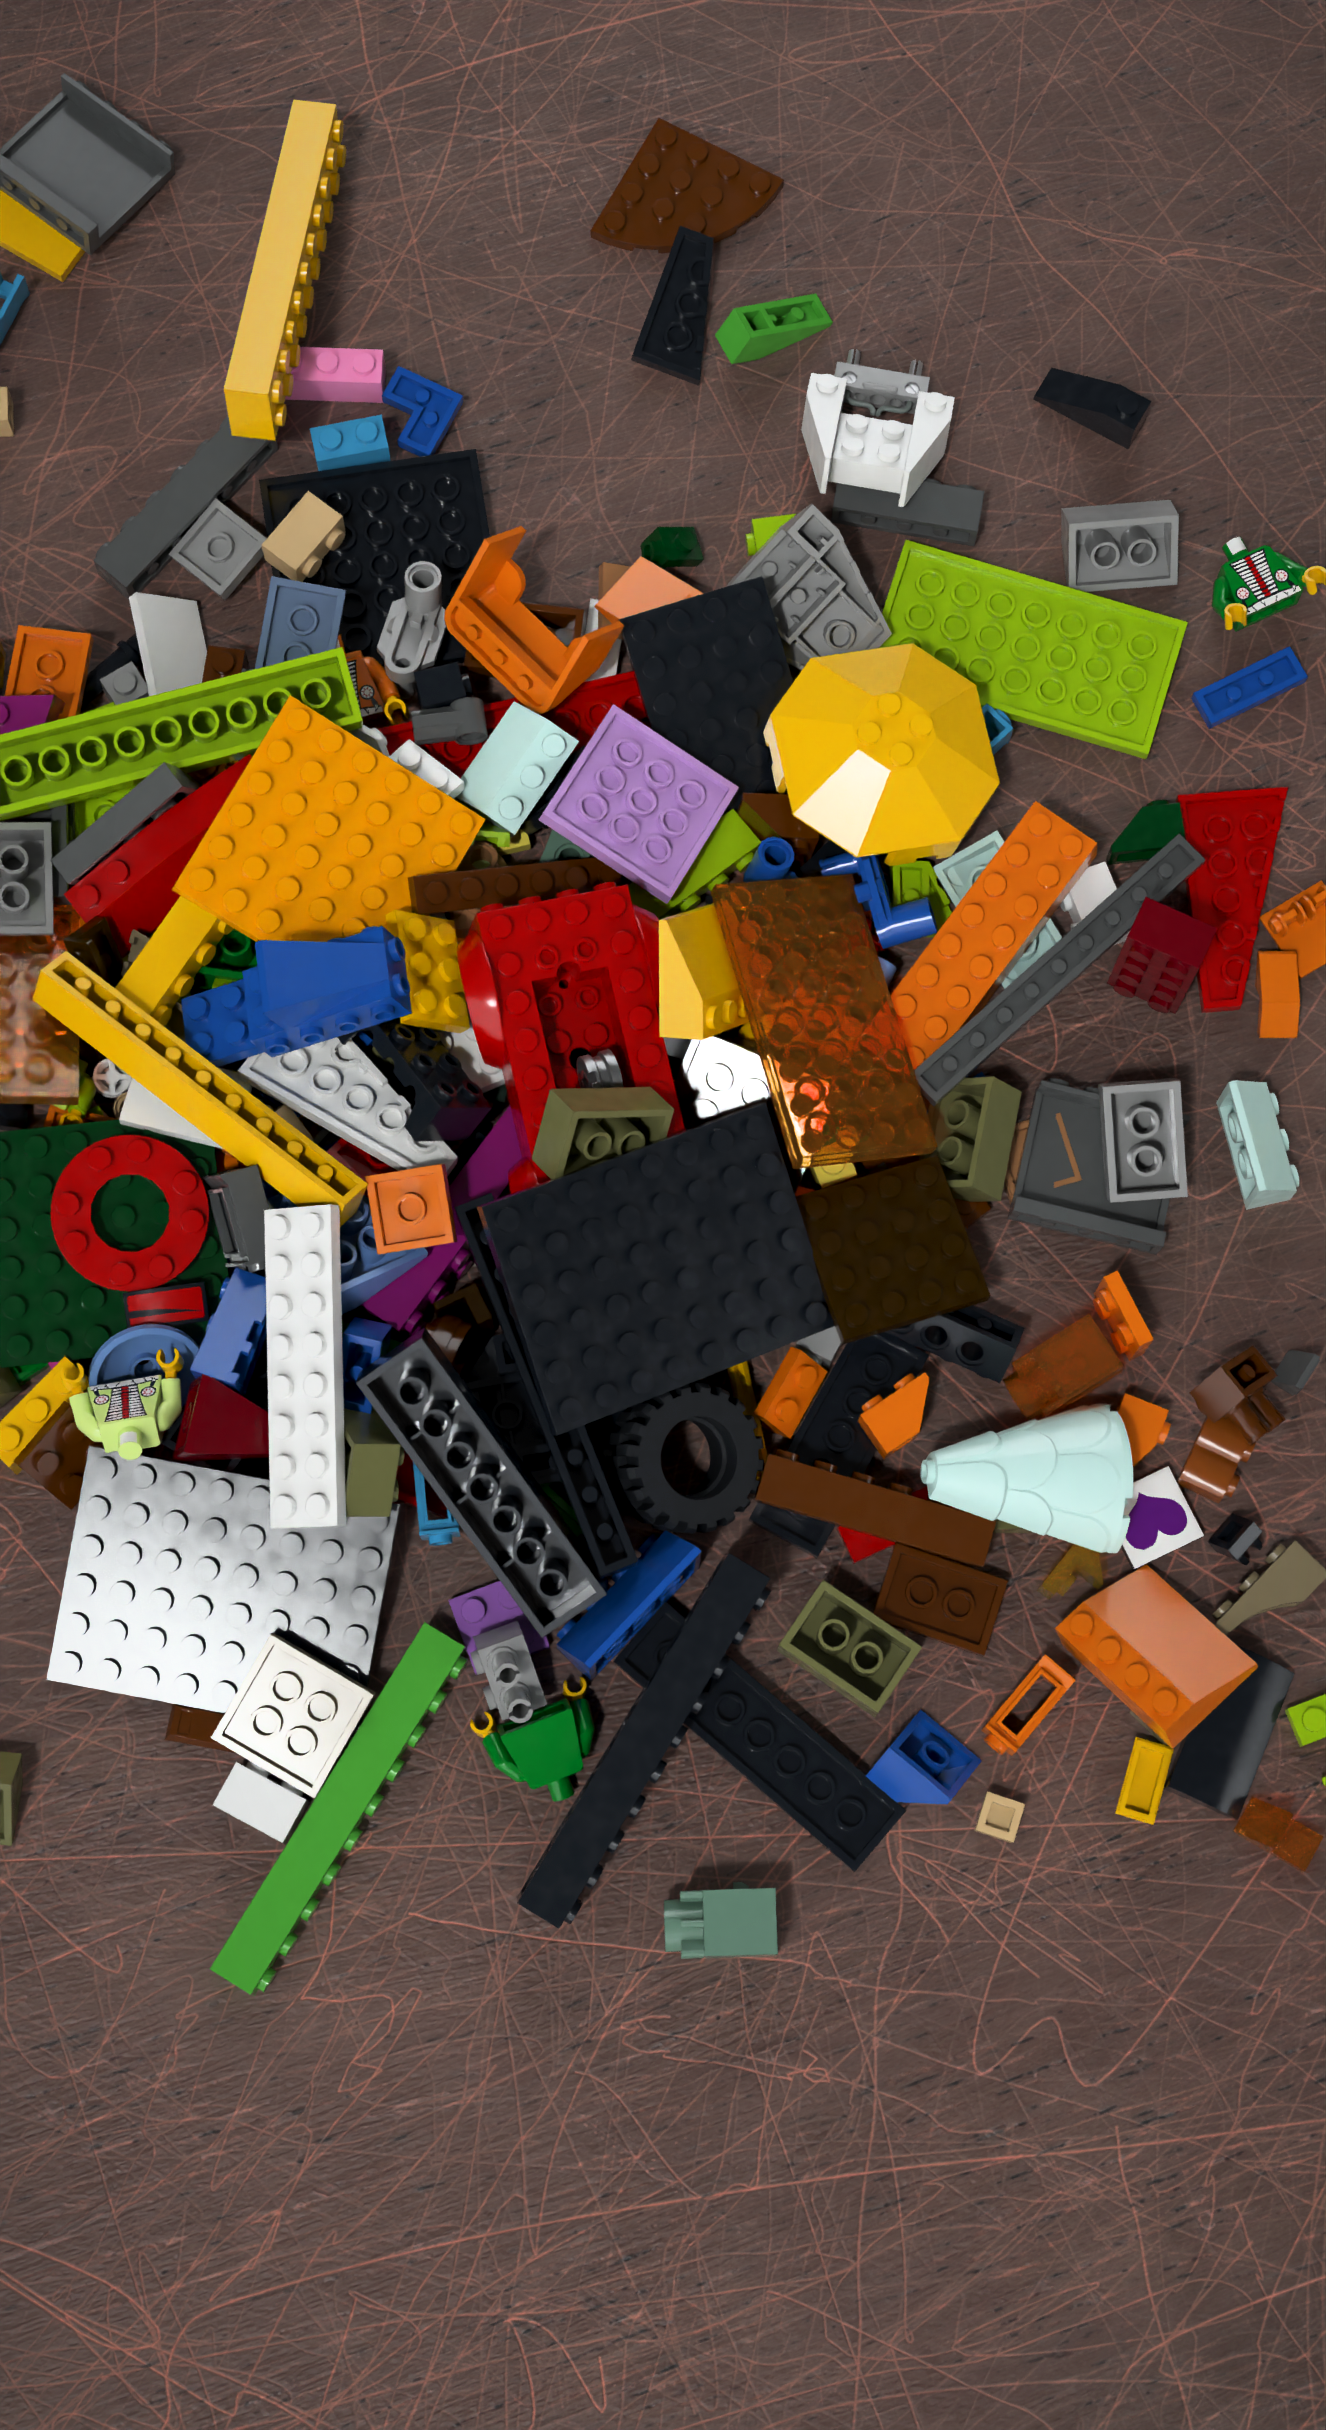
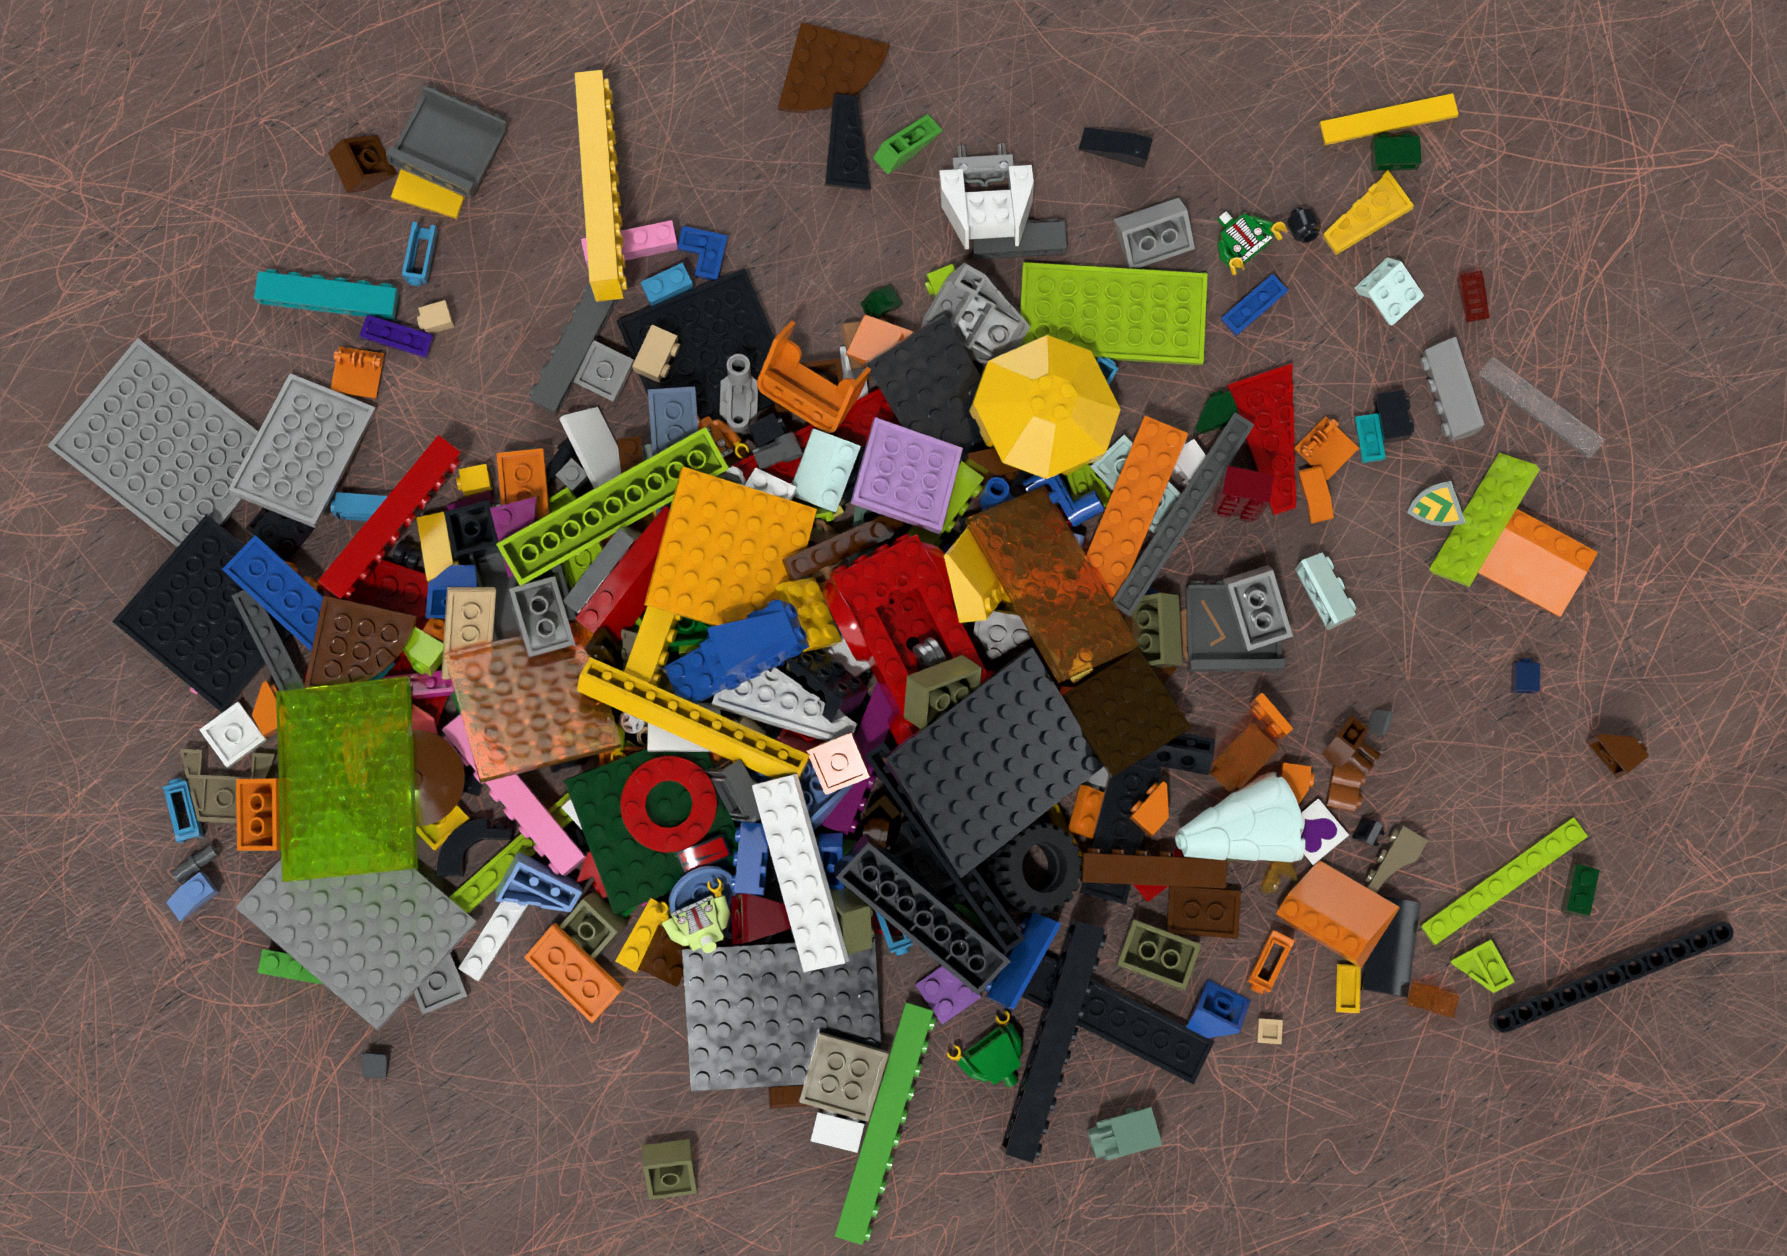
camera: 15 degrees left, 5 degrees up
(510, 1672) = (963, 1019): light grey brick -> none

